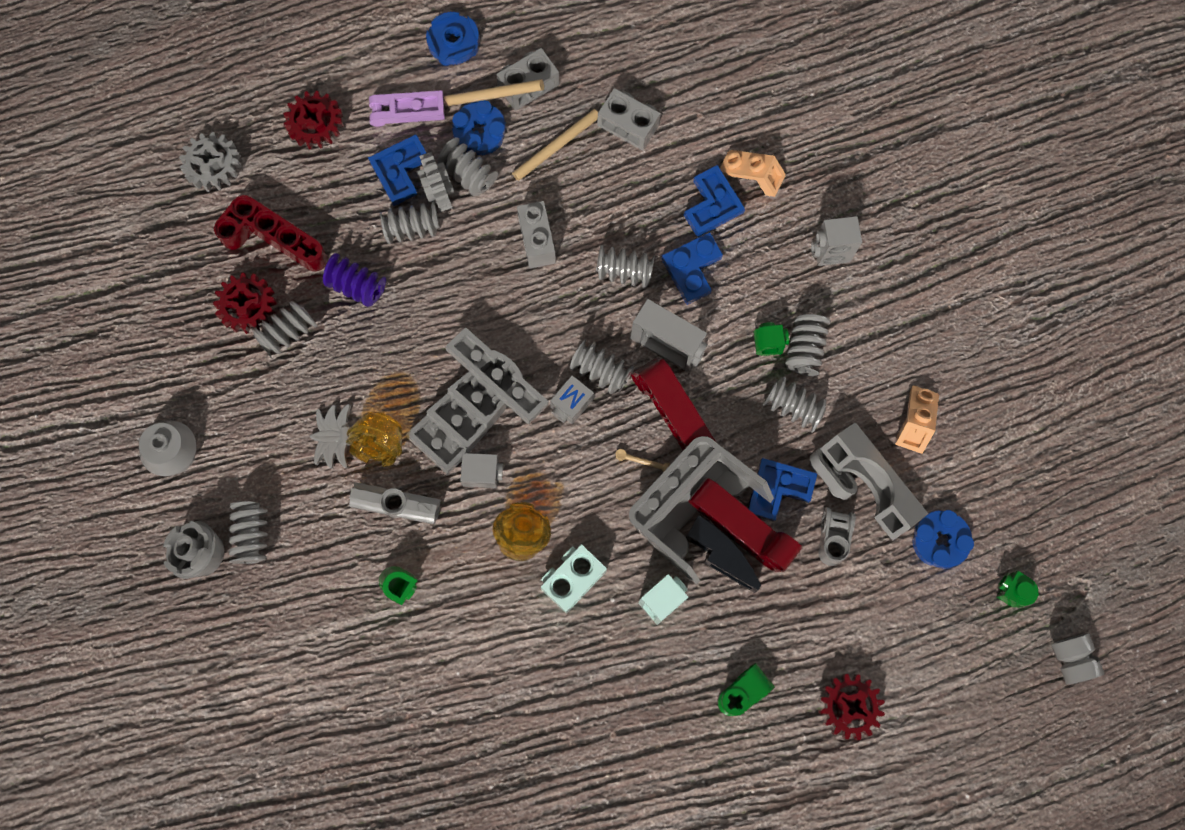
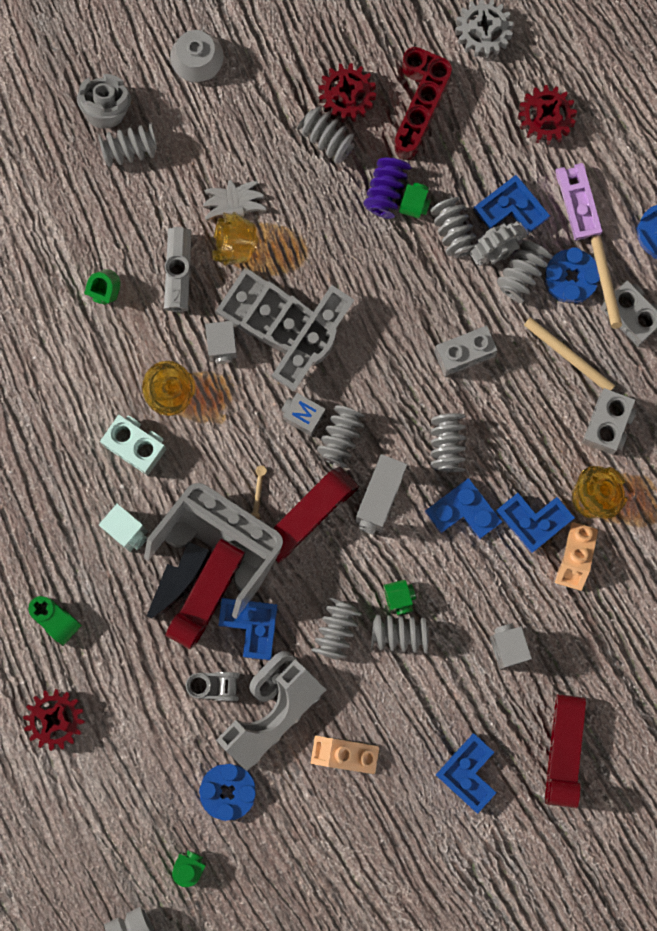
camera: 85 degrees right, 5 degrees up
(373, 256) = (415, 201): none -> green plate
(698, 137) = (599, 492): none -> clear yellow cone
(942, 214) = (565, 752): none -> dark red beam
(946, 311) = (461, 775): none -> blue plate

